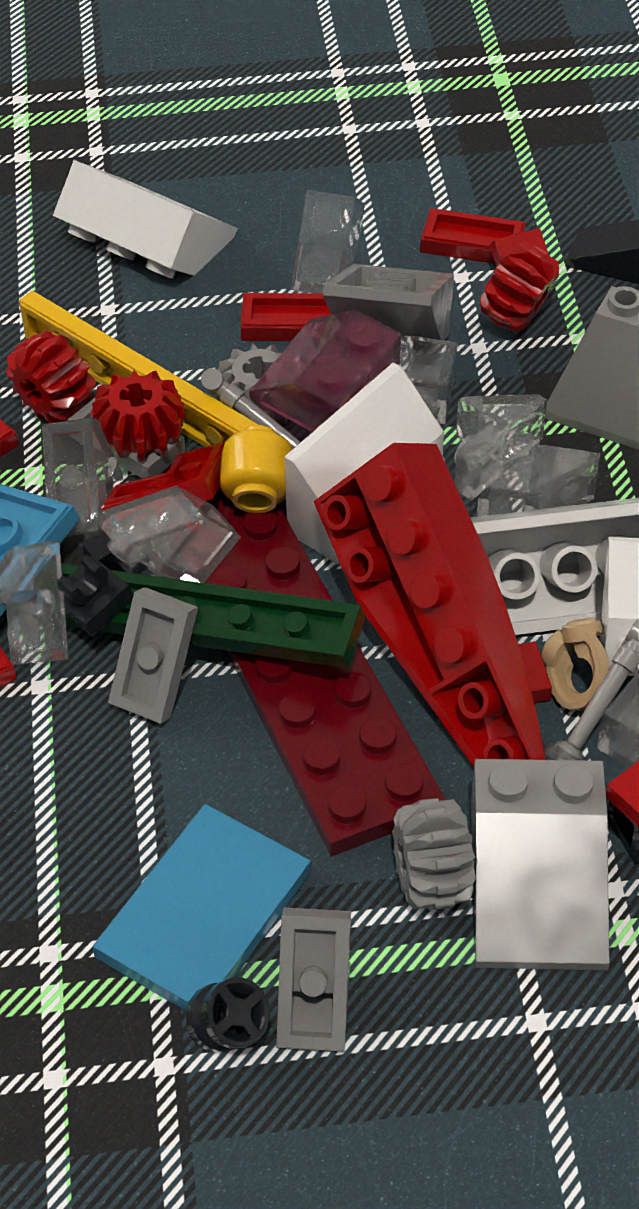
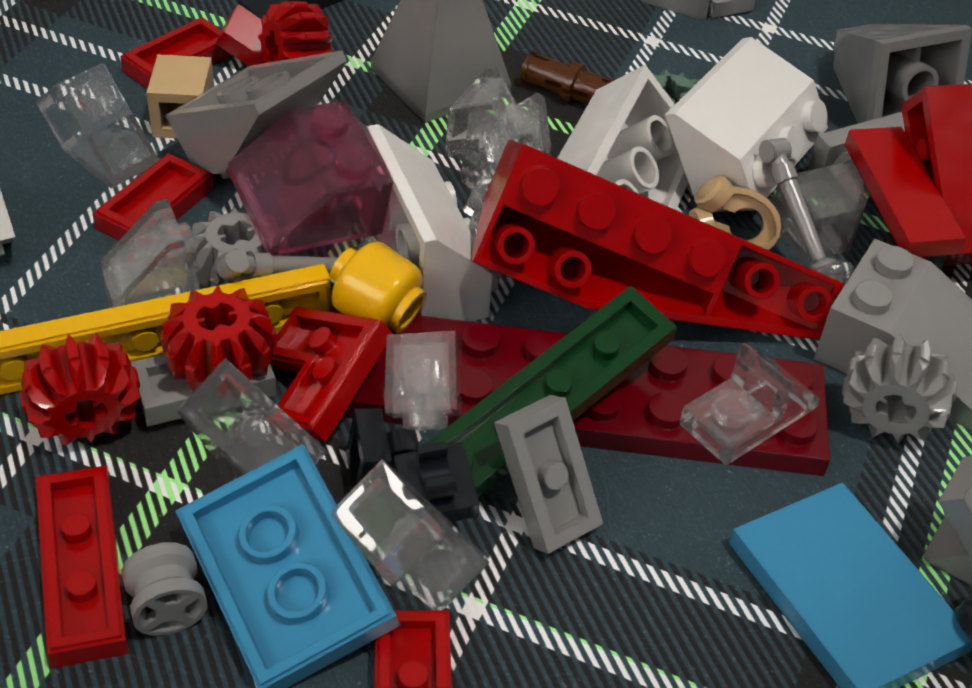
camera: 65 degrees left, 5 degrees down
(184, 344) = (150, 259): none -> clear slope
(331, 755) = (747, 407): none -> clear slope
(410, 248) = (173, 84): none -> tan brick

